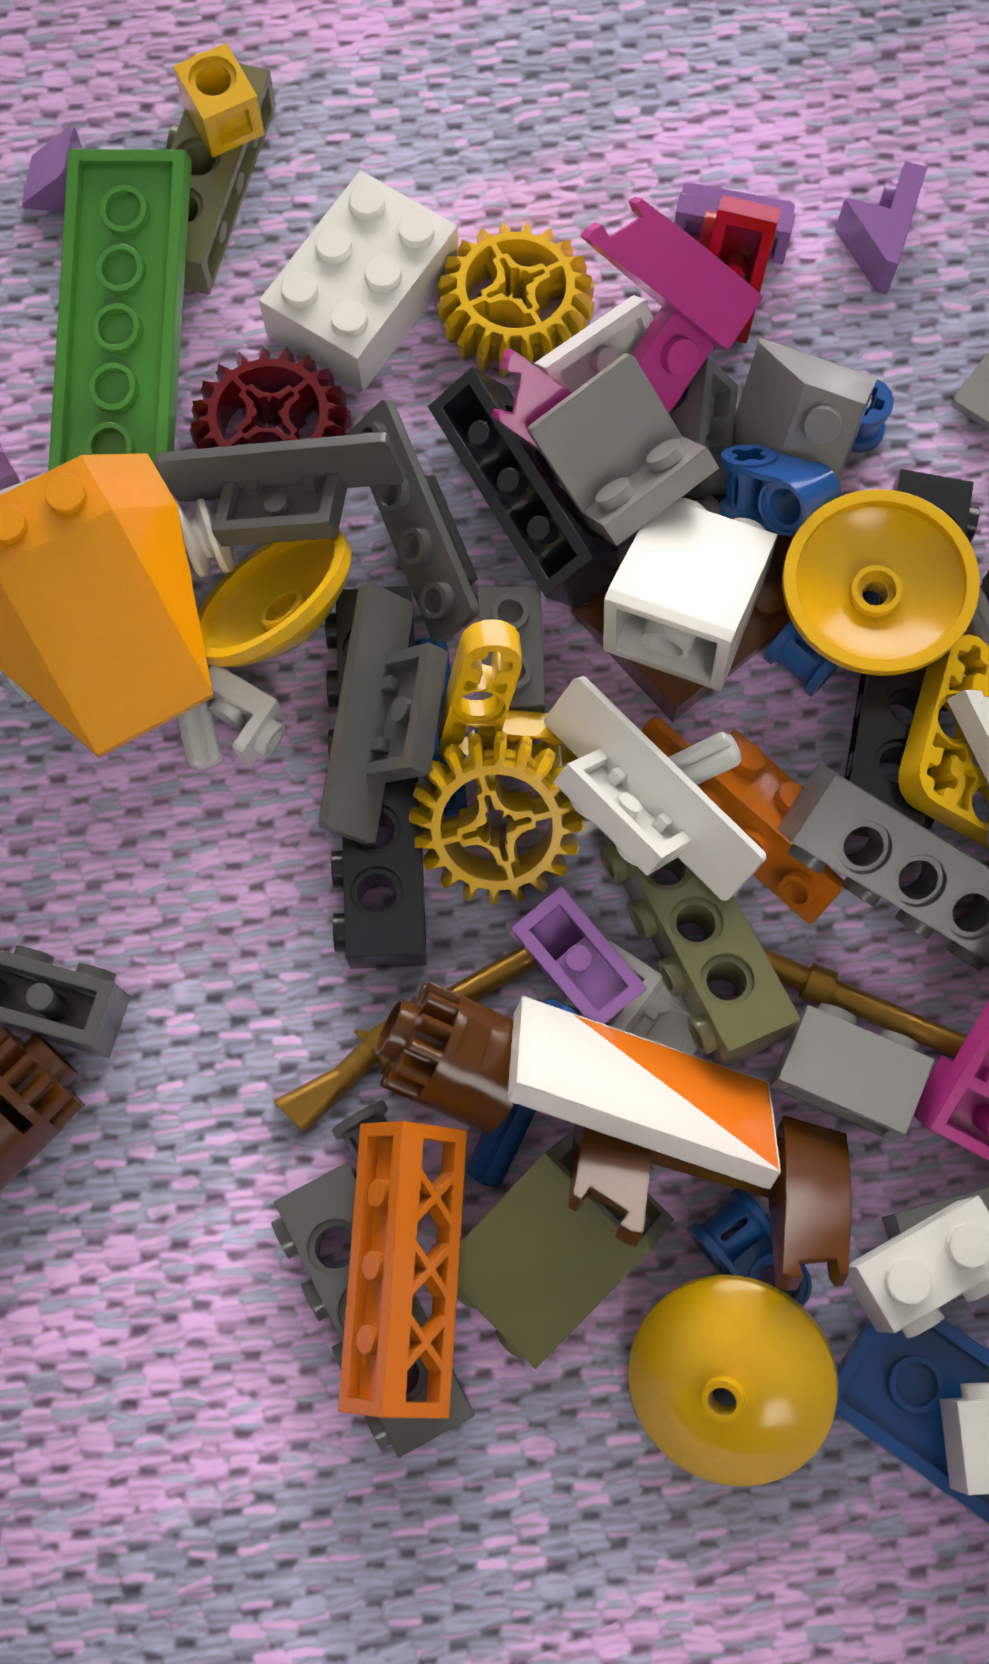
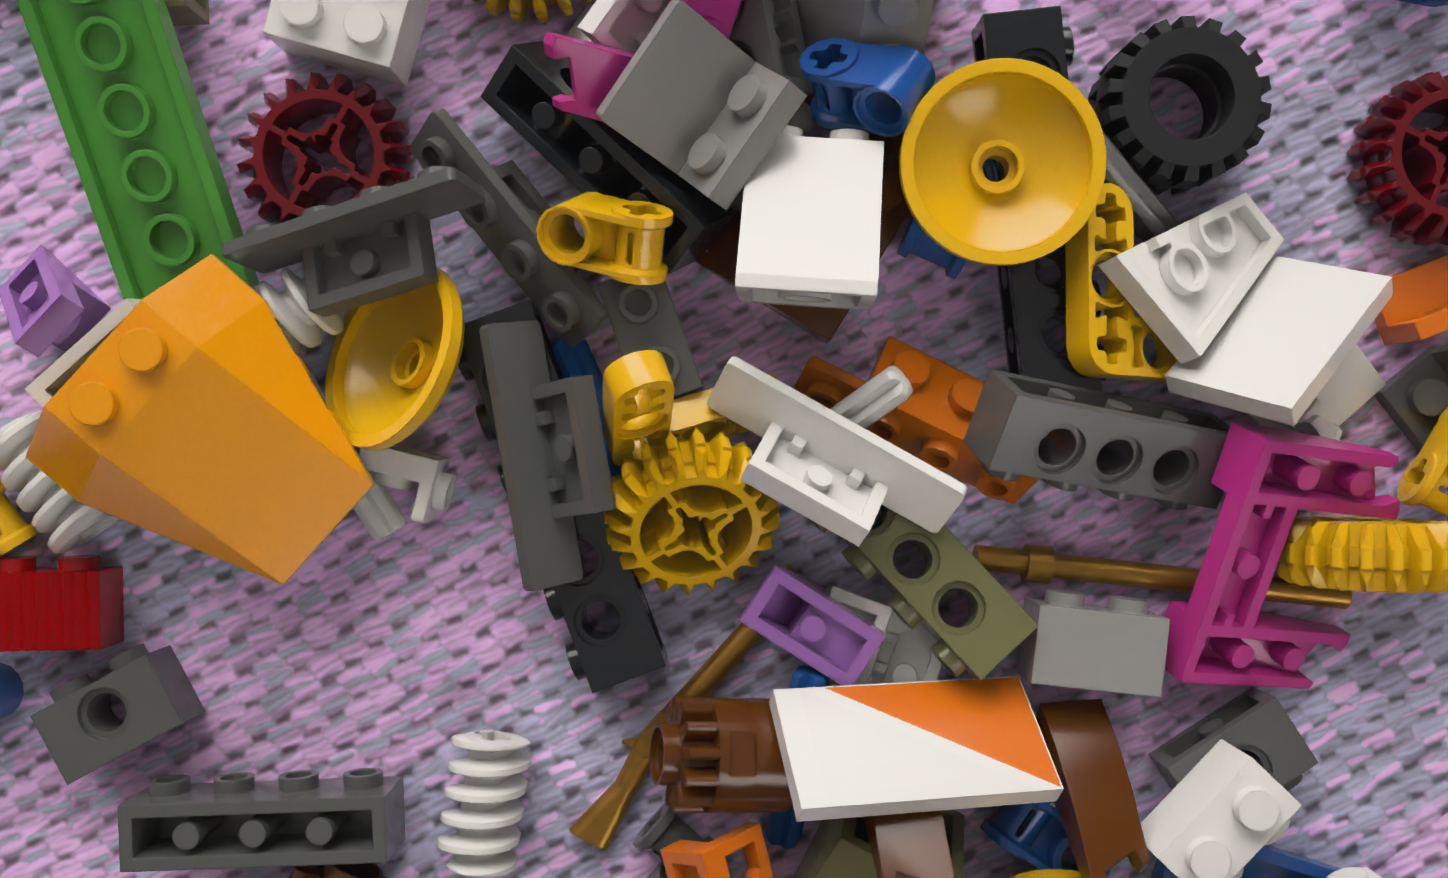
camera: 25 degrees left, 15 degrees up
(202, 1033) = (487, 803): none -> white piece
(509, 545) = (619, 240): none -> yellow piece

